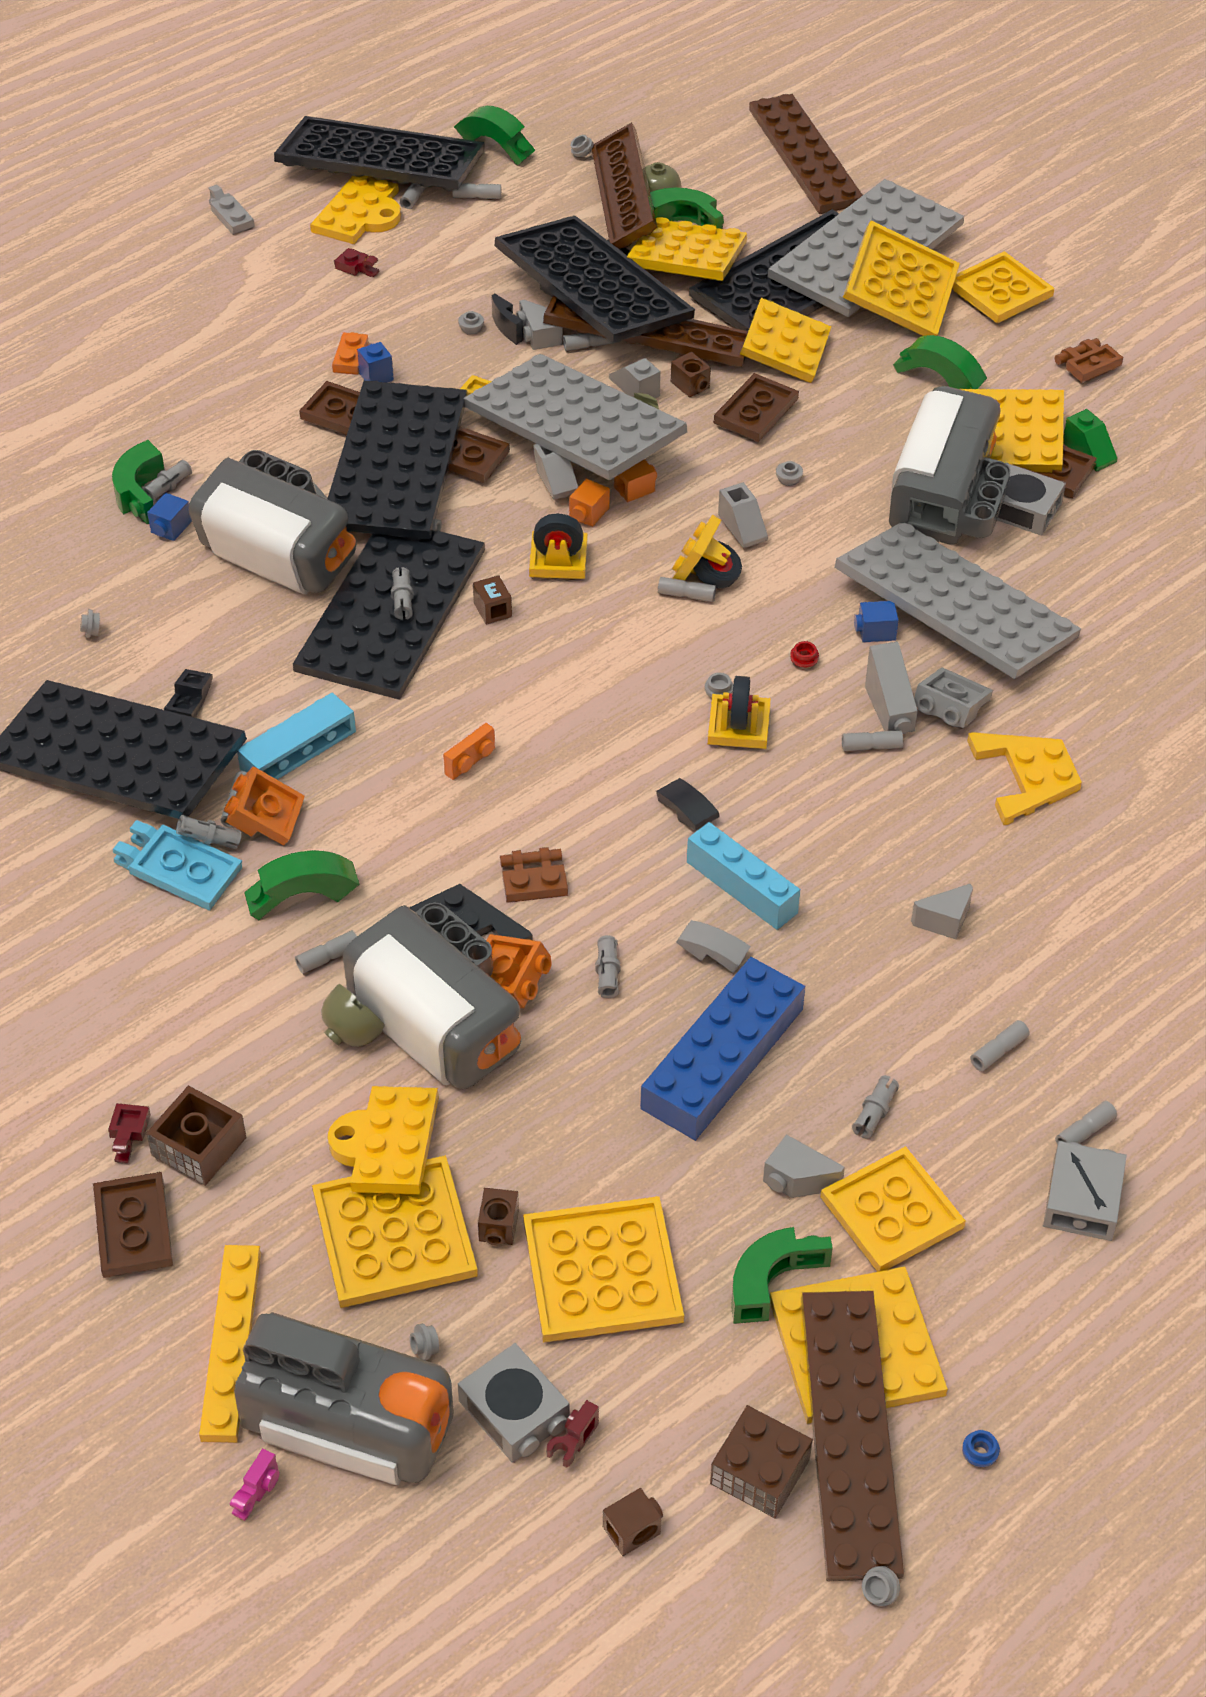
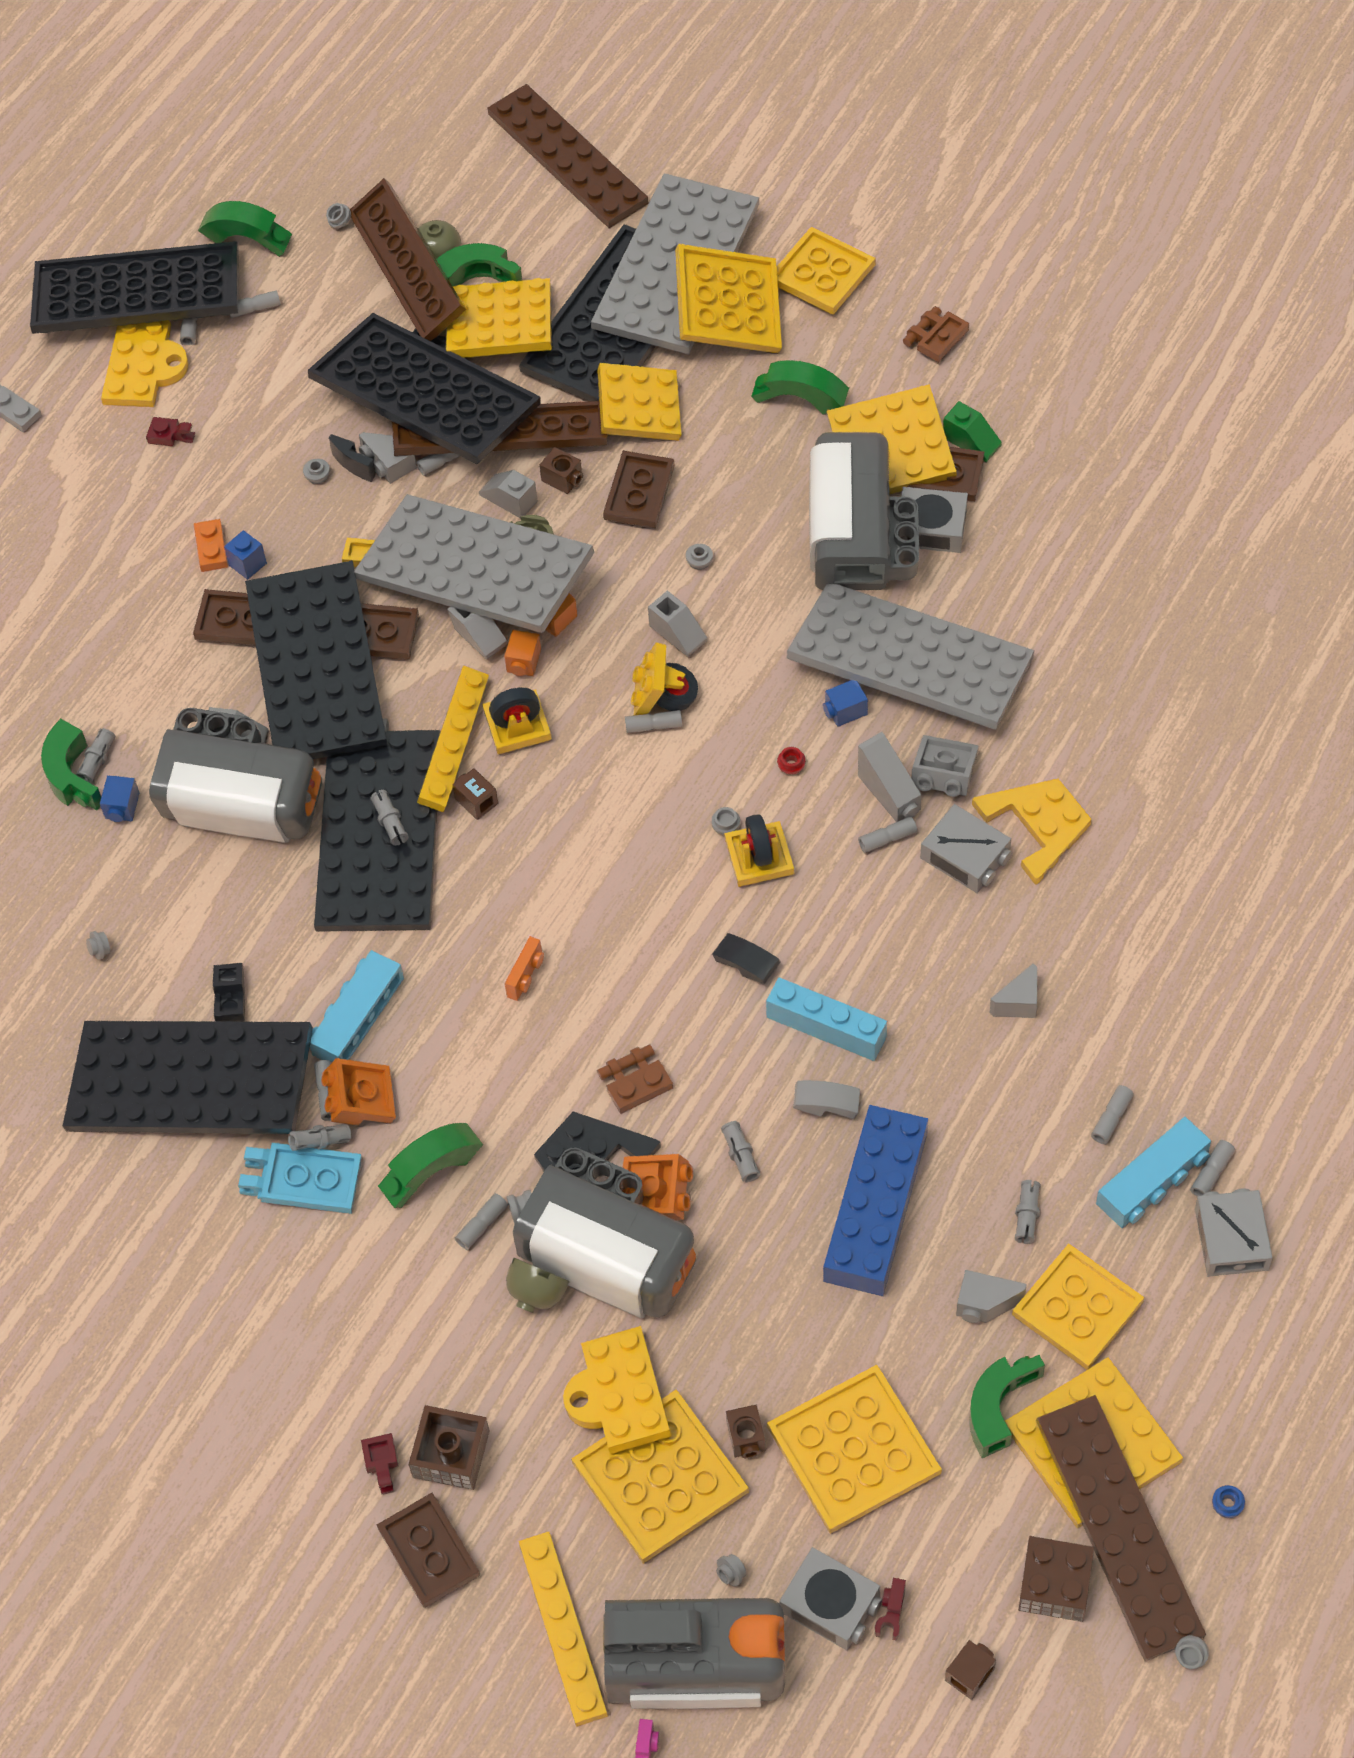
camera: 15 degrees left, 10 degrees up
(491, 551) = (453, 739): none -> yellow plate
(944, 771) = (966, 849): none -> light grey brick
(1021, 1109) = (1154, 1172): none -> medium azure brick

